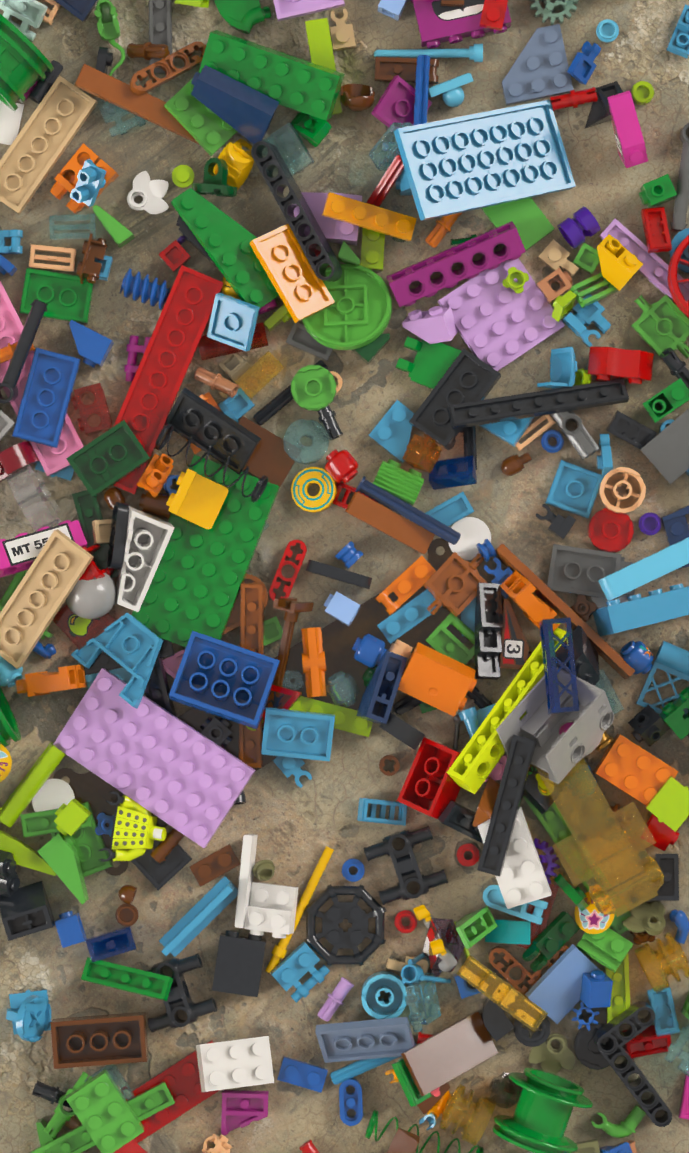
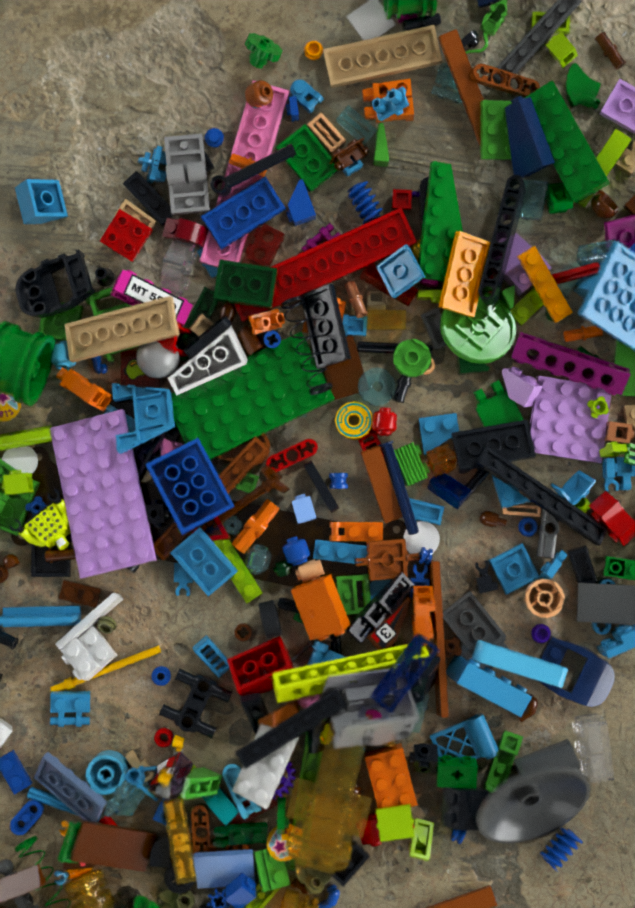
camera: 40 degrees right, 0 degrees up
(147, 50) = (501, 59): reddish brown axle -> none
(152, 193) = (423, 148): white plate -> none
(183, 176) = (452, 156): lime plate -> none
(197, 499) = (276, 359): yellow bracket -> none
(217, 183) = (468, 177): dark green tile -> none
(238, 162) = (490, 177): yellow piece -> none
(239, 964) = (37, 668): black brick -> none
(335, 934) = (125, 716): black plate -> none
(335, 999) = (76, 745): lavender axle -> none
(382, 688) = (282, 582): dark blue slope -> none
(467, 847) = (240, 726): red plate -> none
(610, 530) = (512, 614): red tile -> none
(637, 656) = (457, 708): blue head -> none

